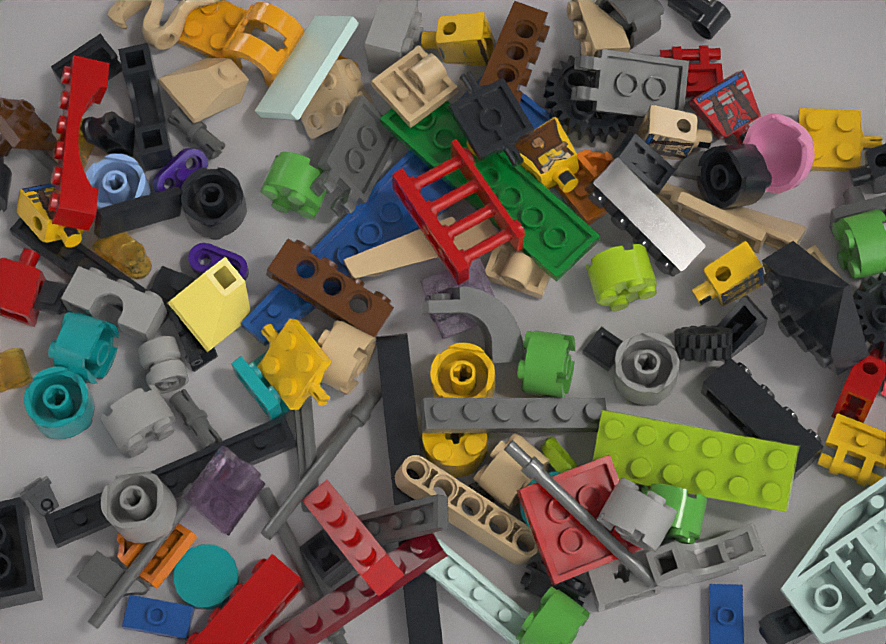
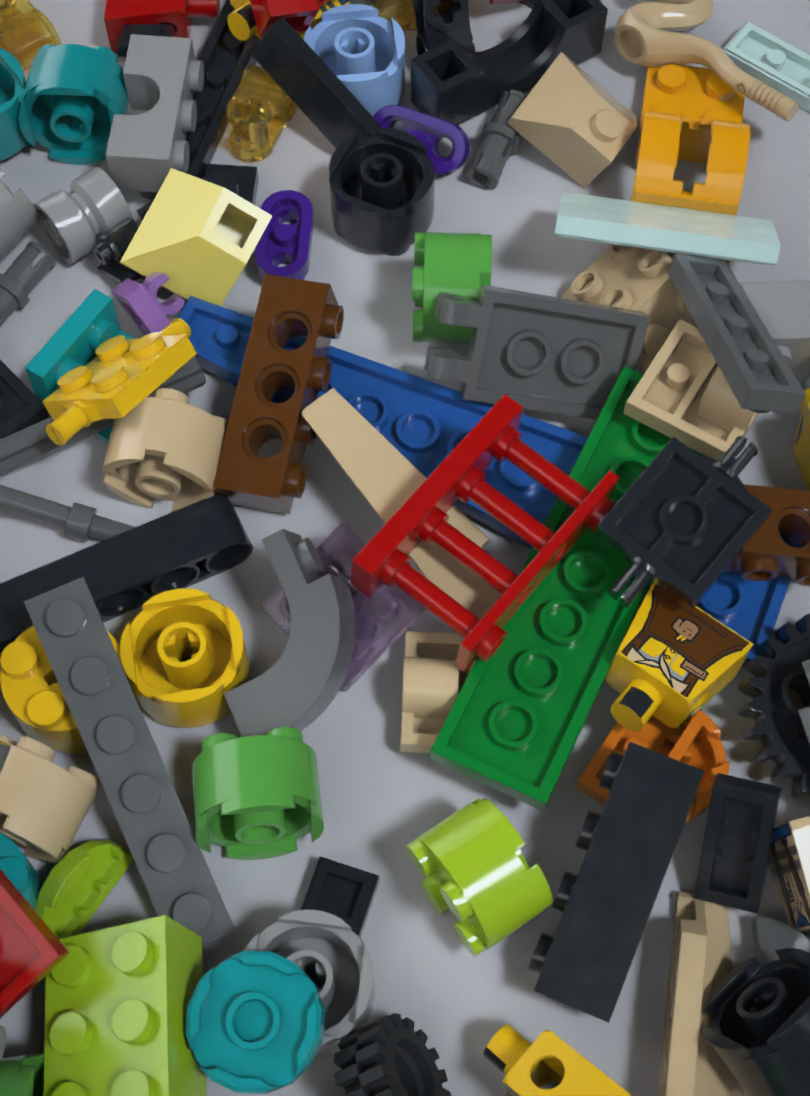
camera: 65 degrees right, 5 degrees down
(240, 344) = (142, 303): none -> medium lavender tile
(397, 57) = (736, 335): none -> dark grey plate
(661, 386) = (255, 1022): none -> teal tile

